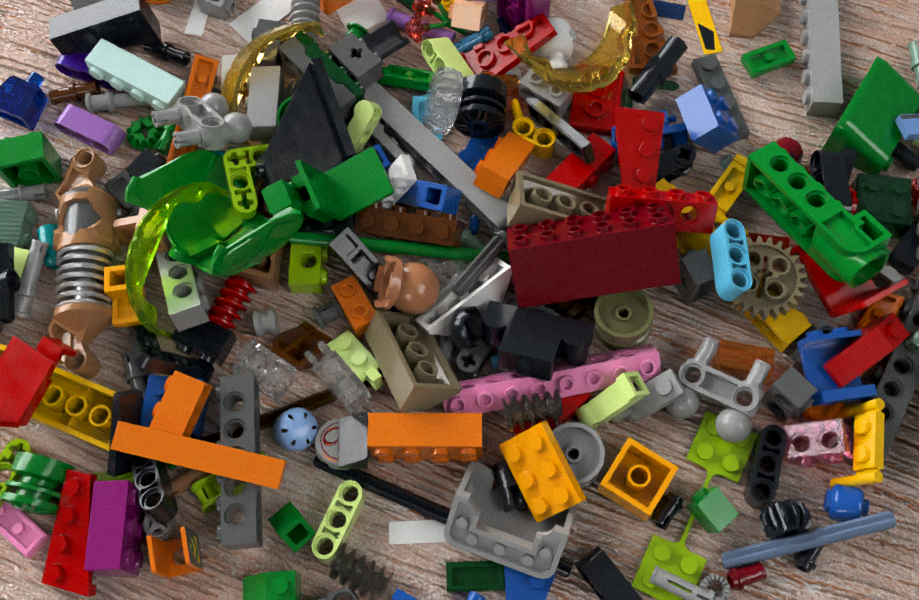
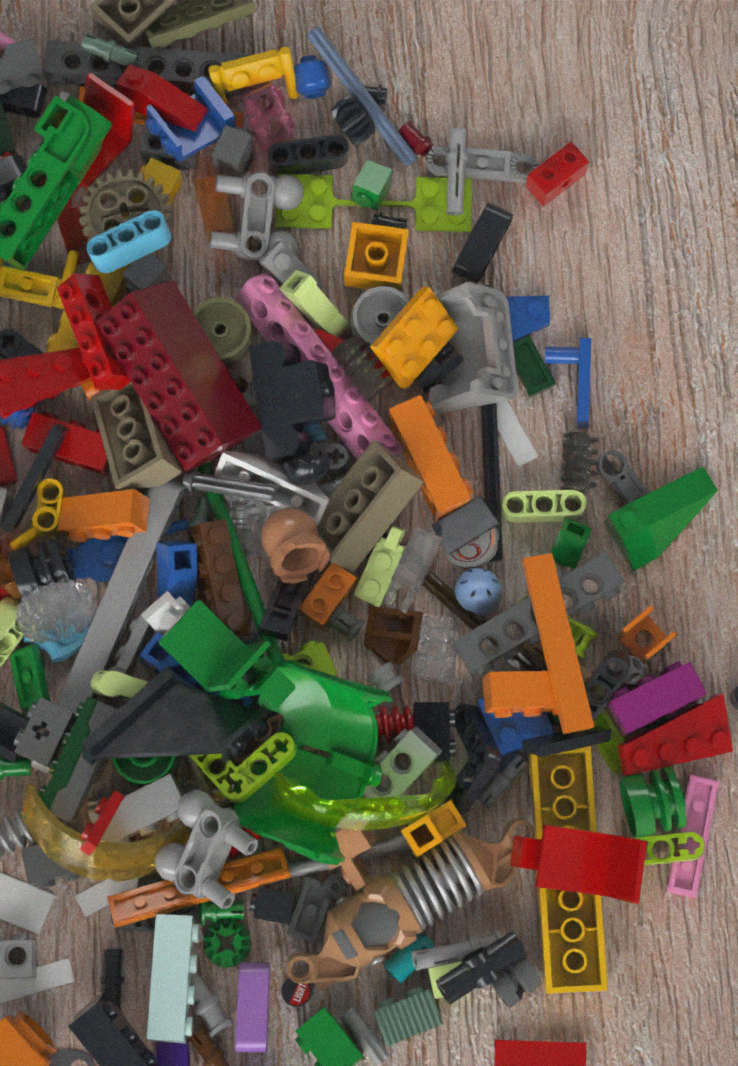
camera: 120 degrees left, 10 degrees up
(257, 49) = (94, 832): none -> red plate

